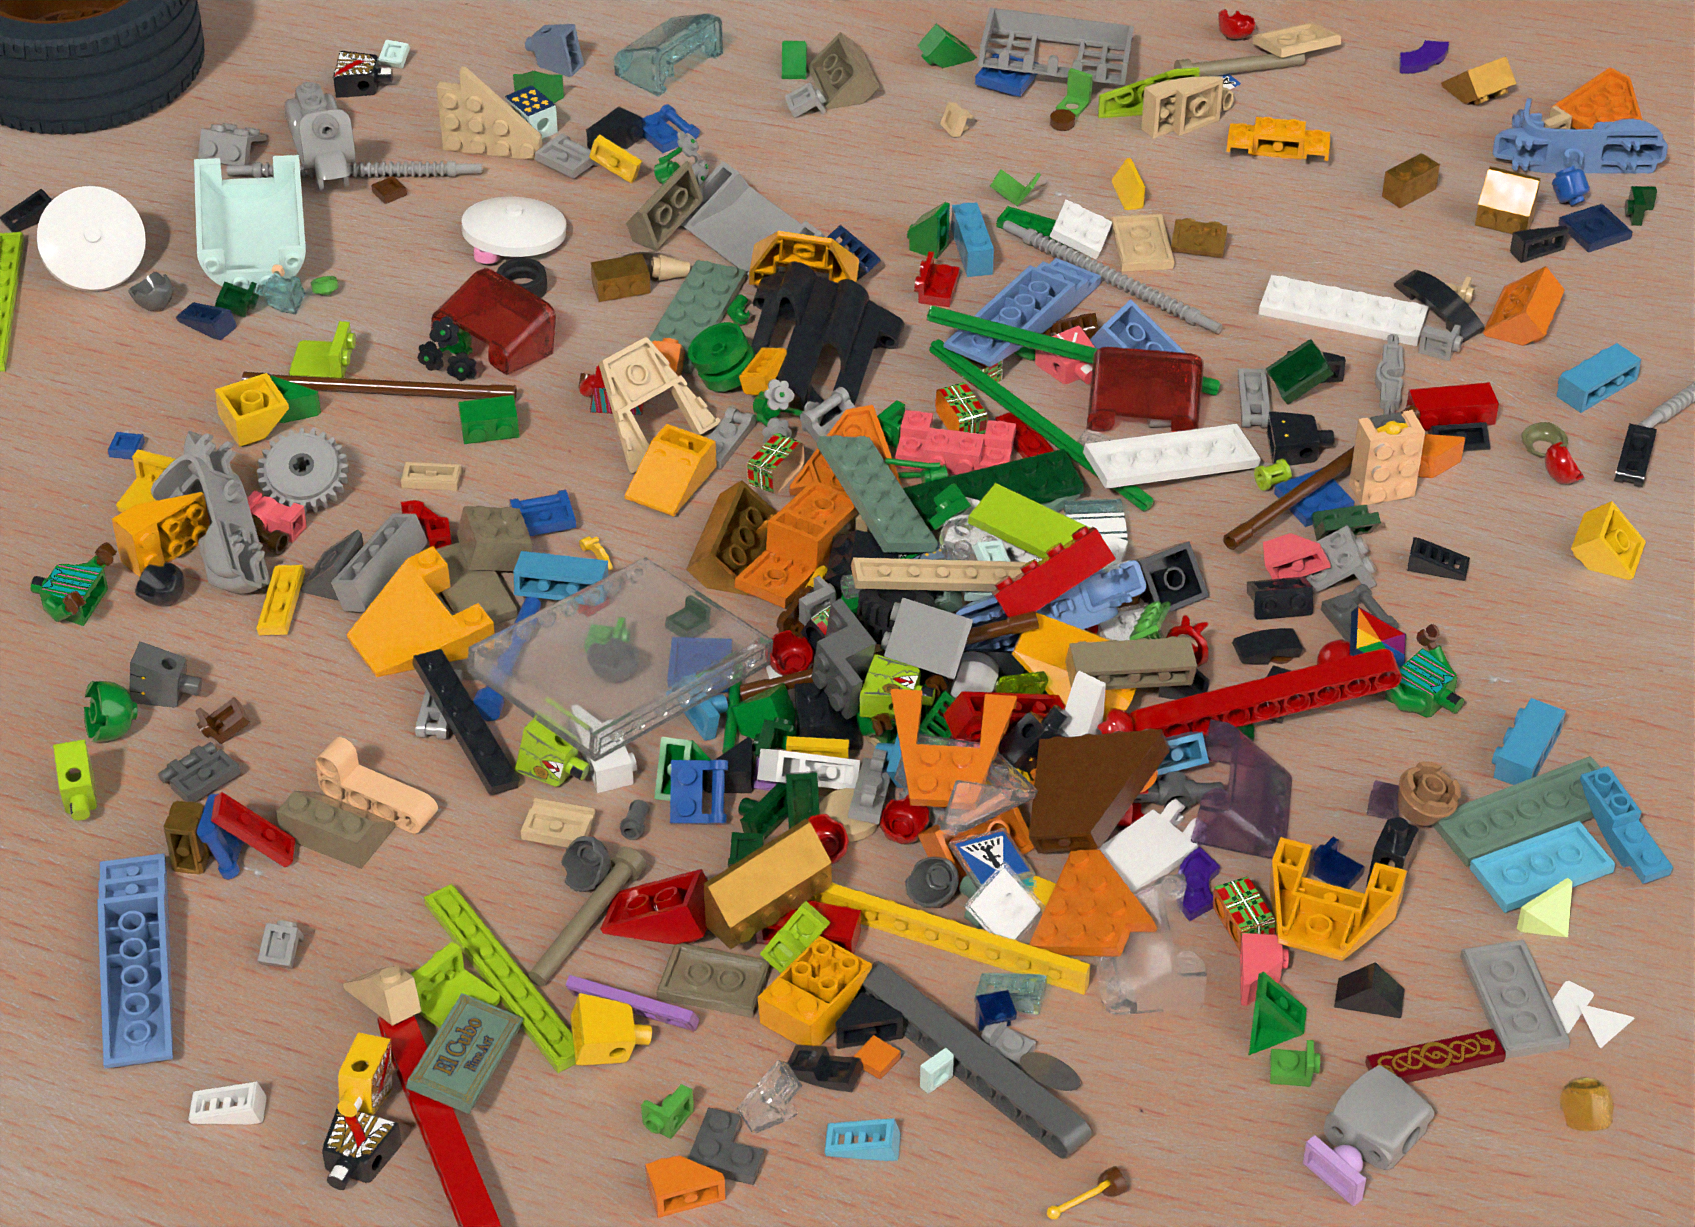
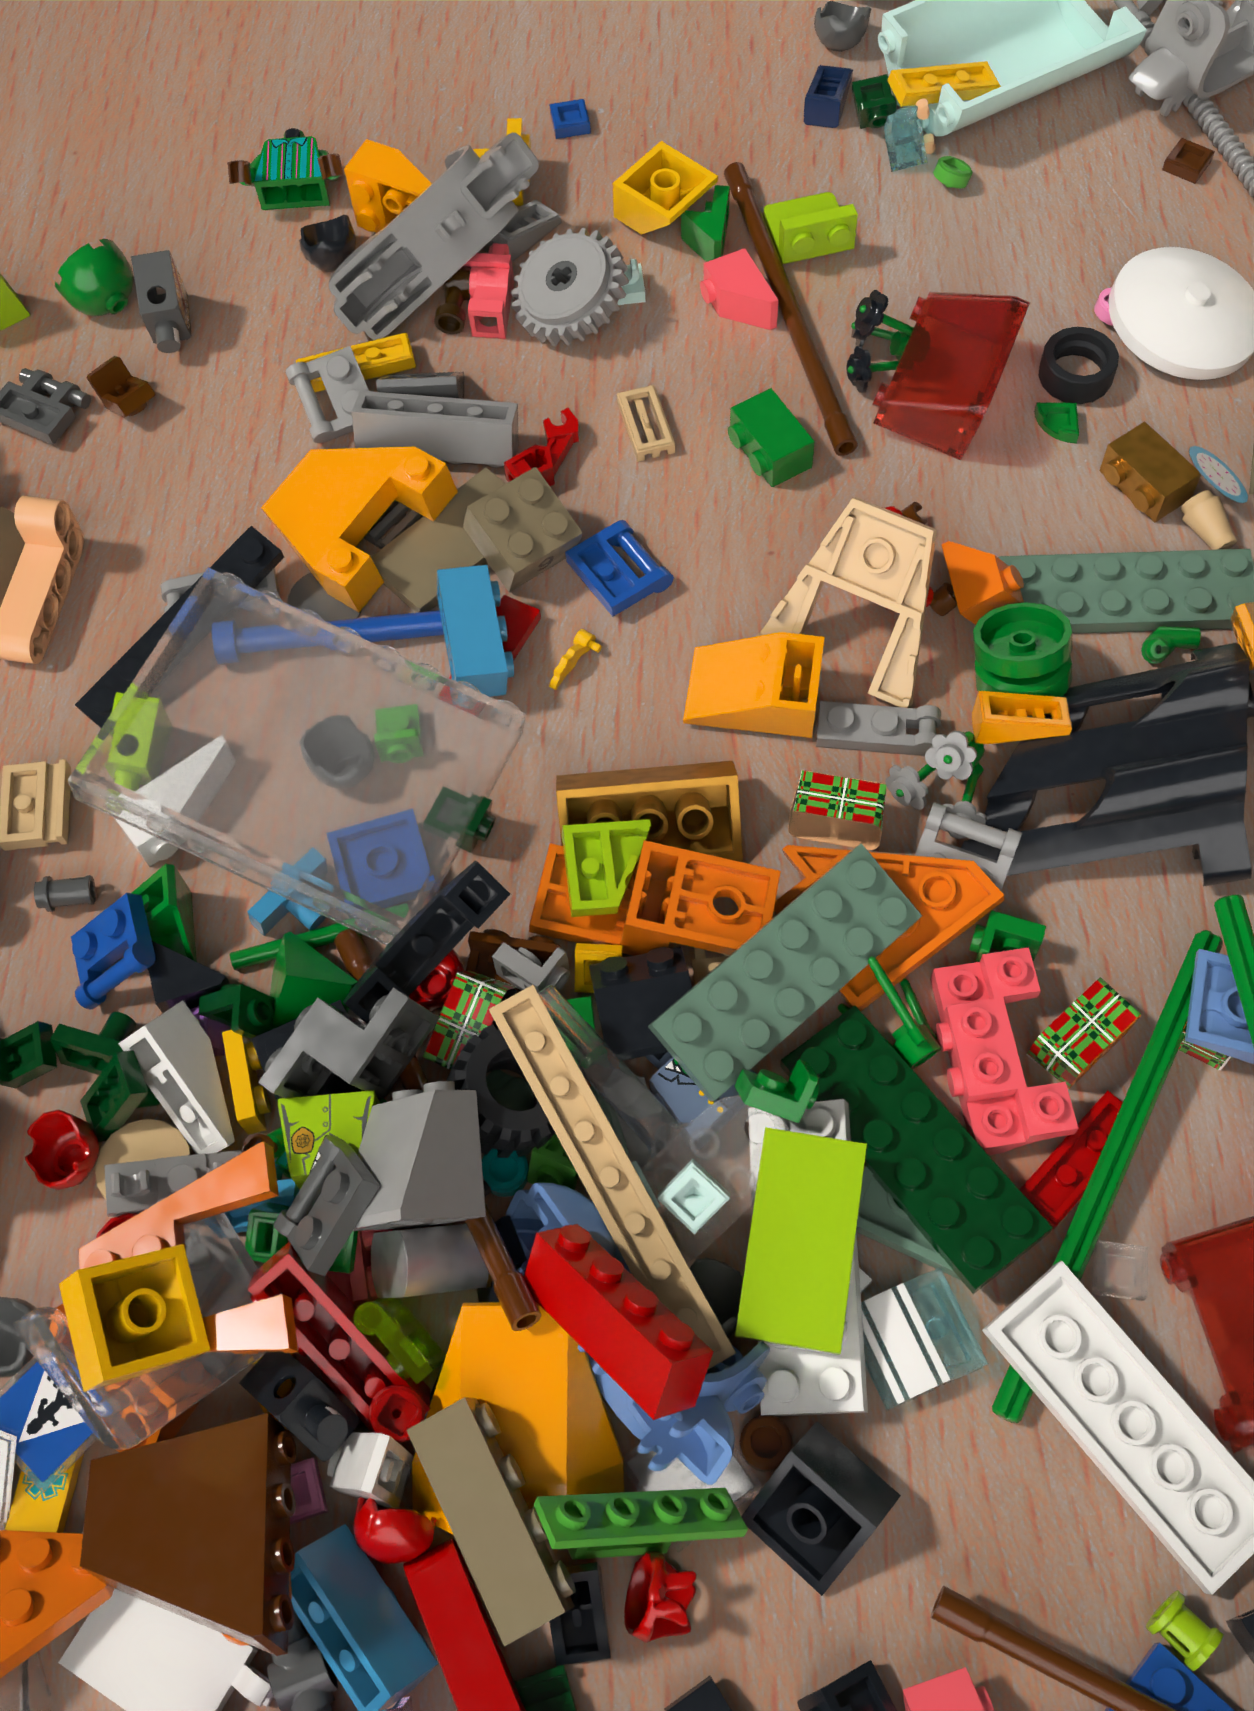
camera: 75 degrees right, 20 degrees up
(258, 257) = (966, 79): none -> yellow tile
(308, 609) = (342, 382): none -> light grey plate
(358, 401) = (739, 290): none -> coral slope
(559, 302) = (1058, 420): none -> green tile
(765, 556) = (601, 863): none -> lime wing
(768, 604) = (428, 938): none -> black slope
(946, 671) = (327, 1205): none -> dark grey plate
(972, 754) = (133, 1316): none -> yellow slope
(1056, 695) = (395, 1411): none -> red tile

